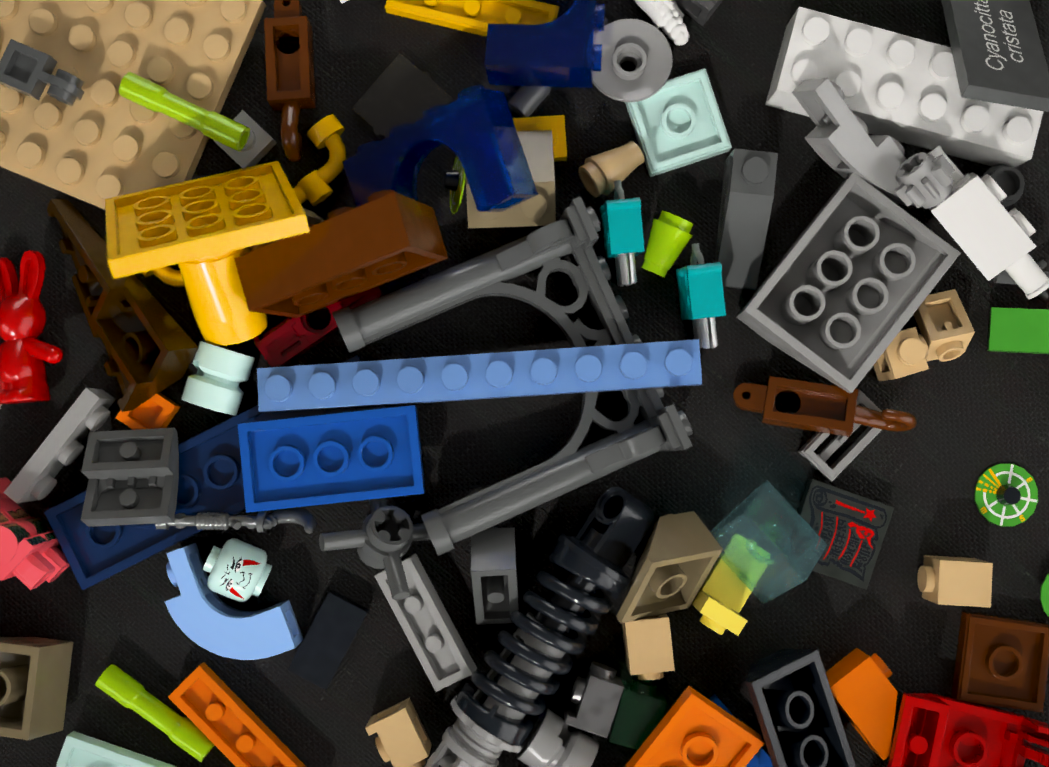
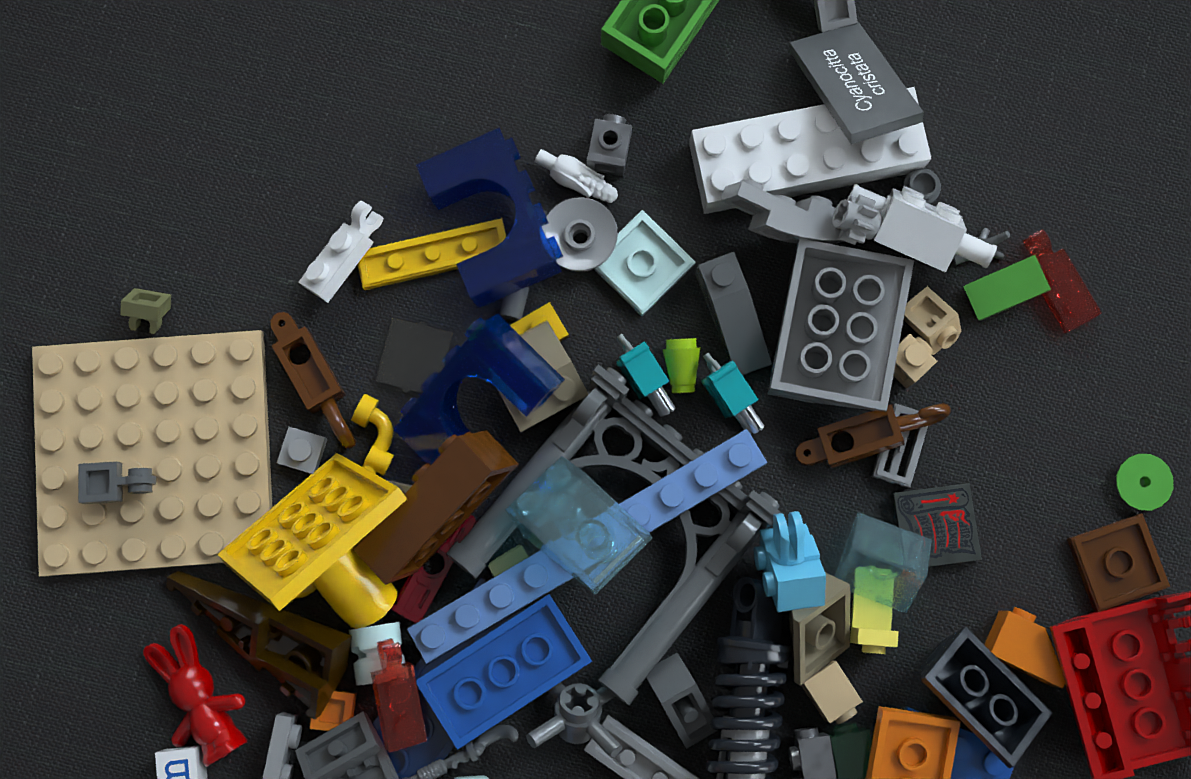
camera: 25 degrees left, 5 degrees down
(160, 100) = (220, 452): lime piece -> none
(211, 433) = (397, 699): none -> clear red plate
(392, 350) = (508, 560): none -> olive tile
(455, 181) = (491, 400): piece -> none
(477, 350) = (578, 525): none -> clear light blue slope
(609, 166) = (606, 326): tan cone -> none
(673, 499) = (790, 564): none -> medium azure brick
(956, 581) = (1047, 517): tan brick -> none
(1006, 494) = (1053, 427): bright green piece -> none

